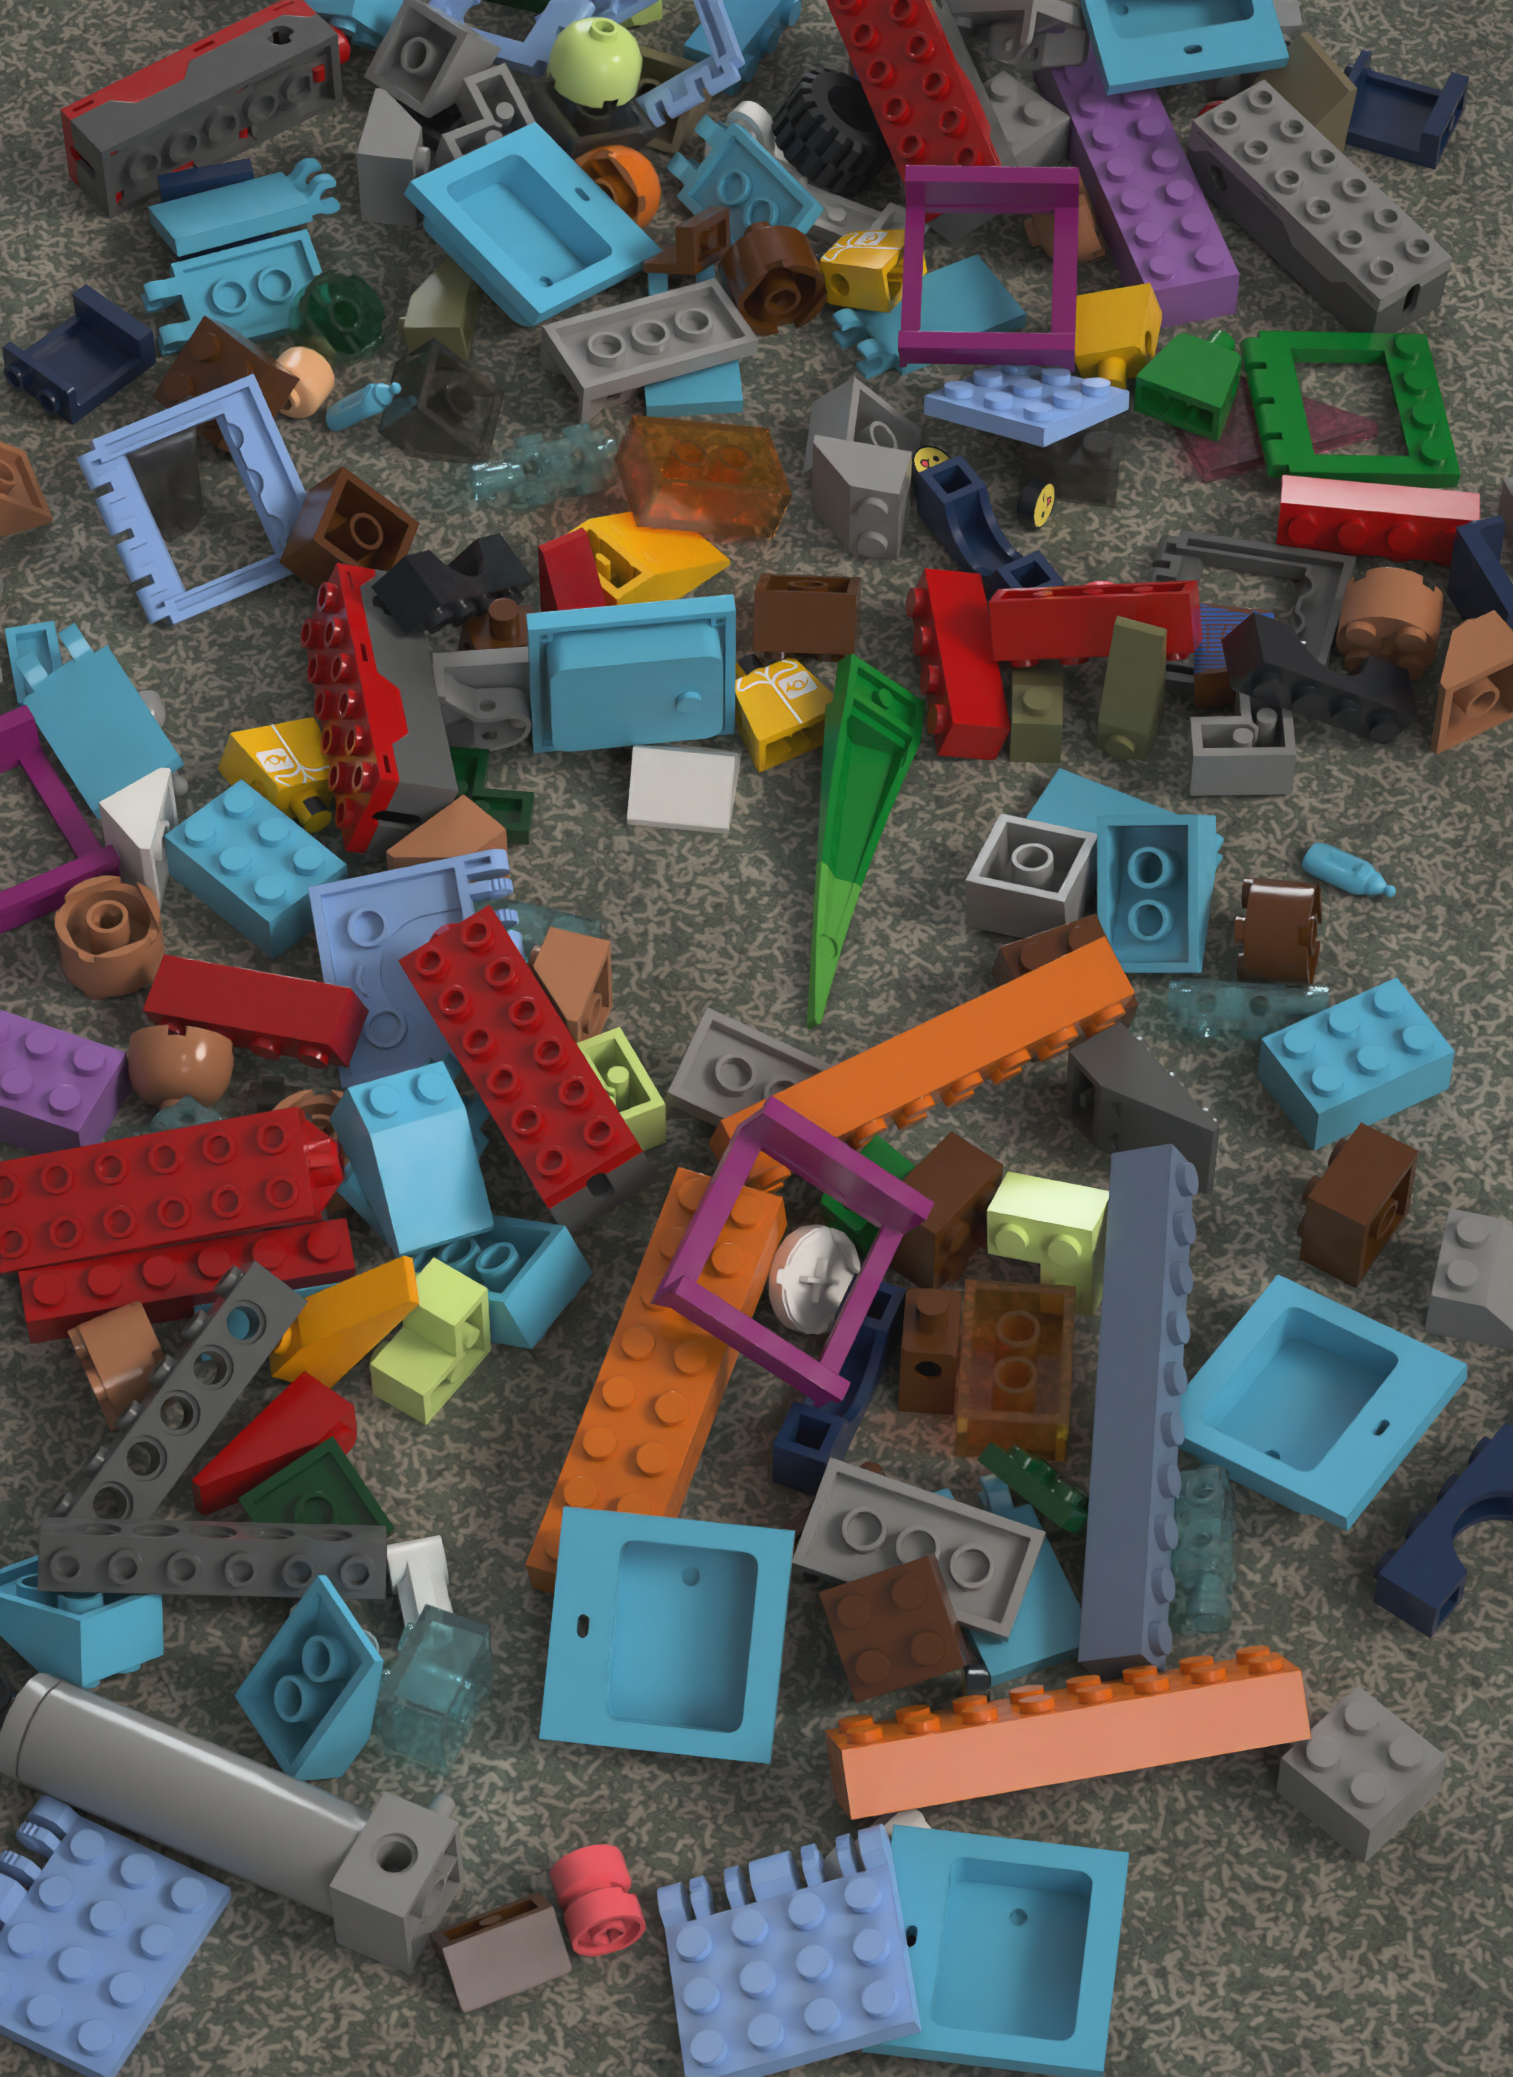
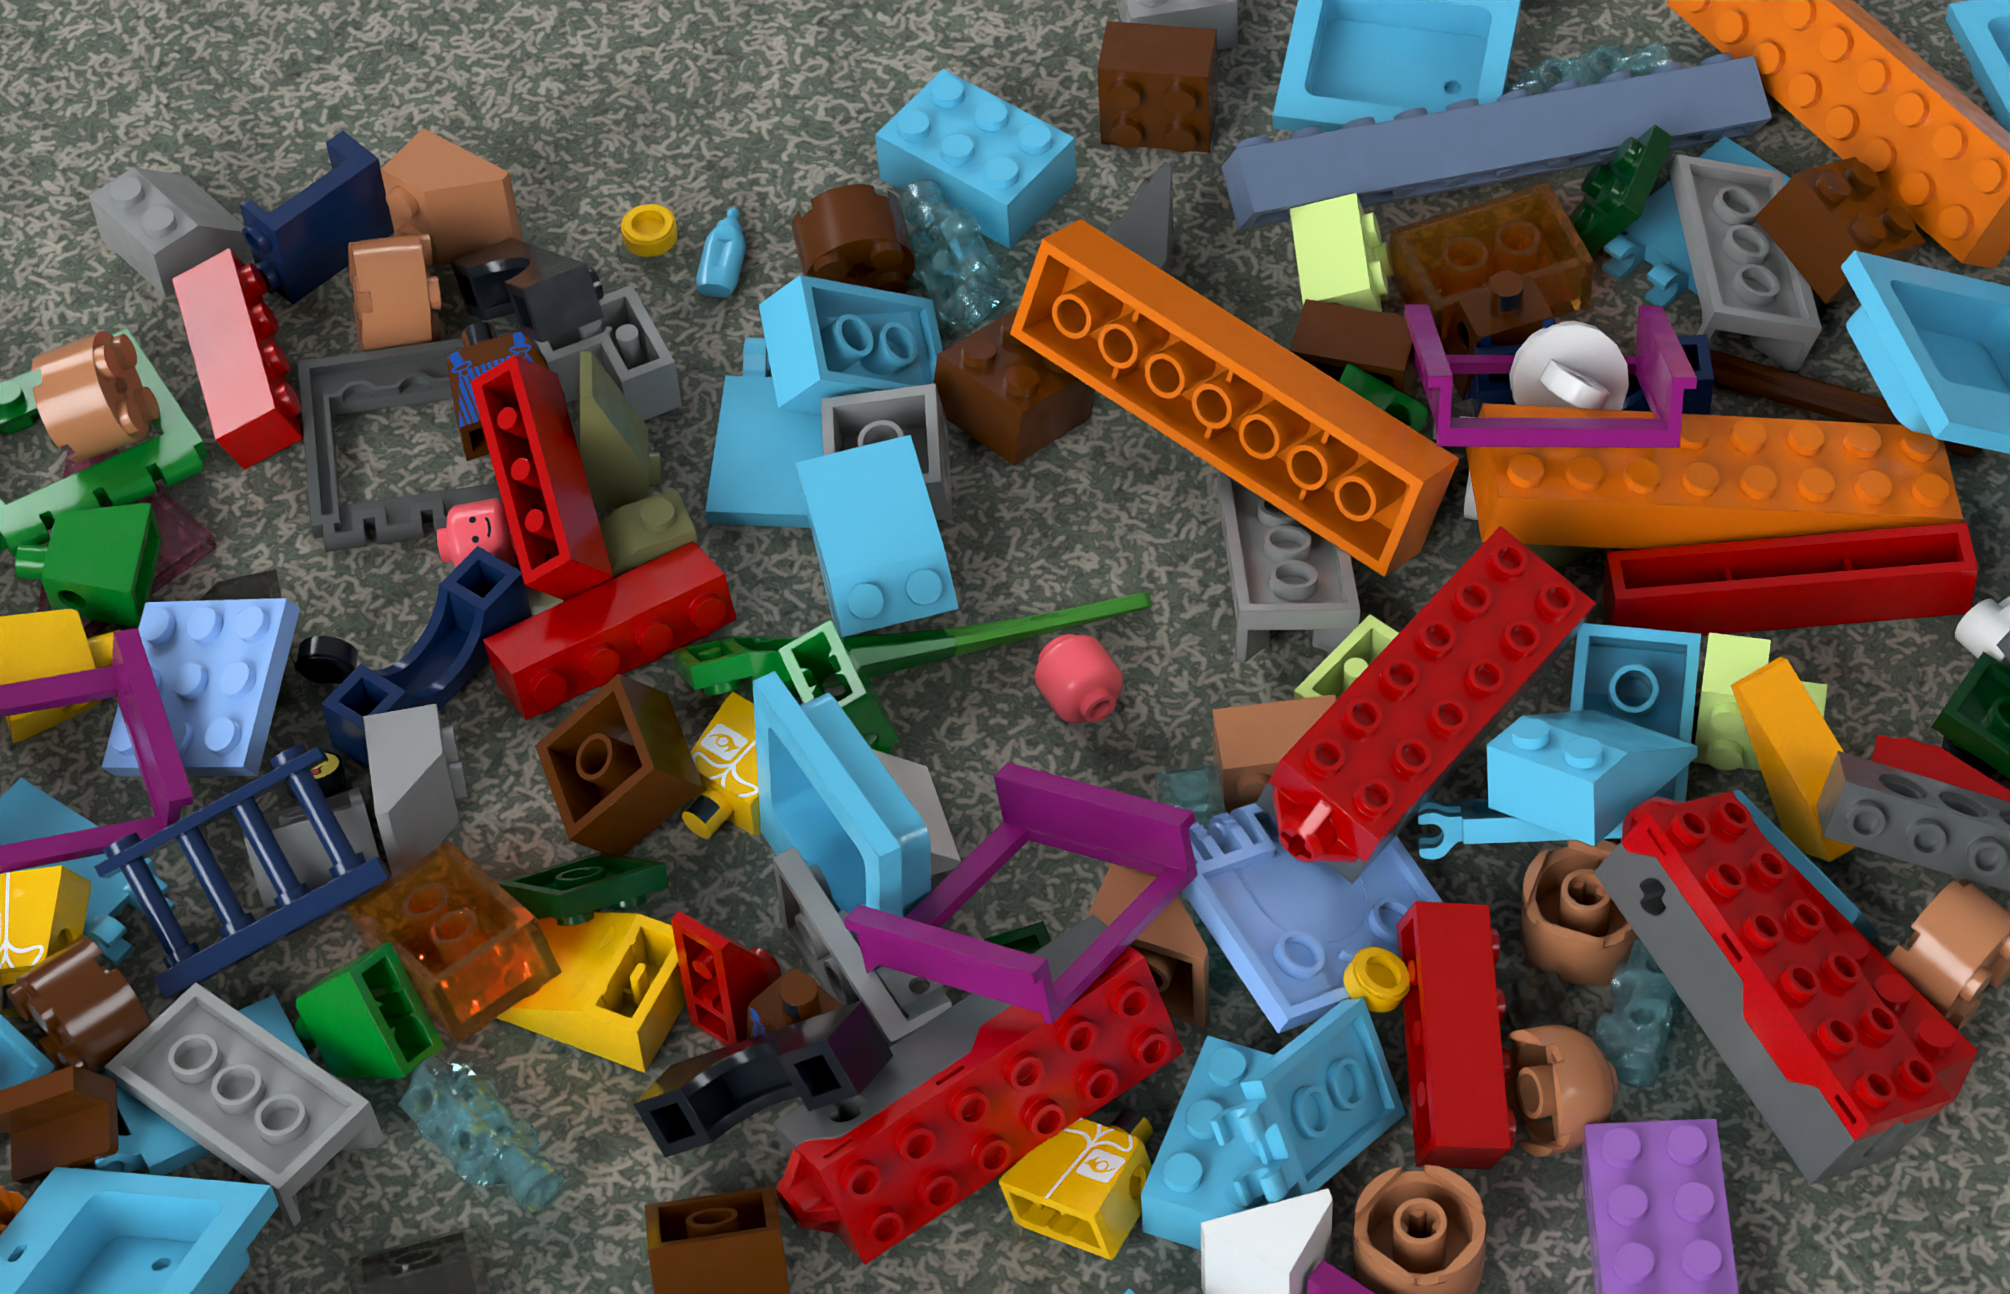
camera: 110 degrees left, 0 degrees up
(235, 883) = (1313, 1106): none -> medium azure tile
(324, 965) = (1378, 978): none -> yellow tile
(455, 654) = (1055, 814): none -> magenta piece
(535, 1447) = (1793, 581): none -> red brick
(670, 396) = (367, 1019): none -> green torso
(710, 557) = (587, 884): none -> dark green plate
(741, 931) = (1078, 678): none -> coral head
(781, 749) = (825, 653): none -> green torso
(788, 375) = (240, 931): none -> dark blue fence
(816, 1312) = (1569, 369): none -> white tile
(929, 827) = (876, 536): none -> medium azure slope
(1350, 397) = (93, 395): none -> nougat brick
(1404, 834) = (649, 230): none -> yellow tile

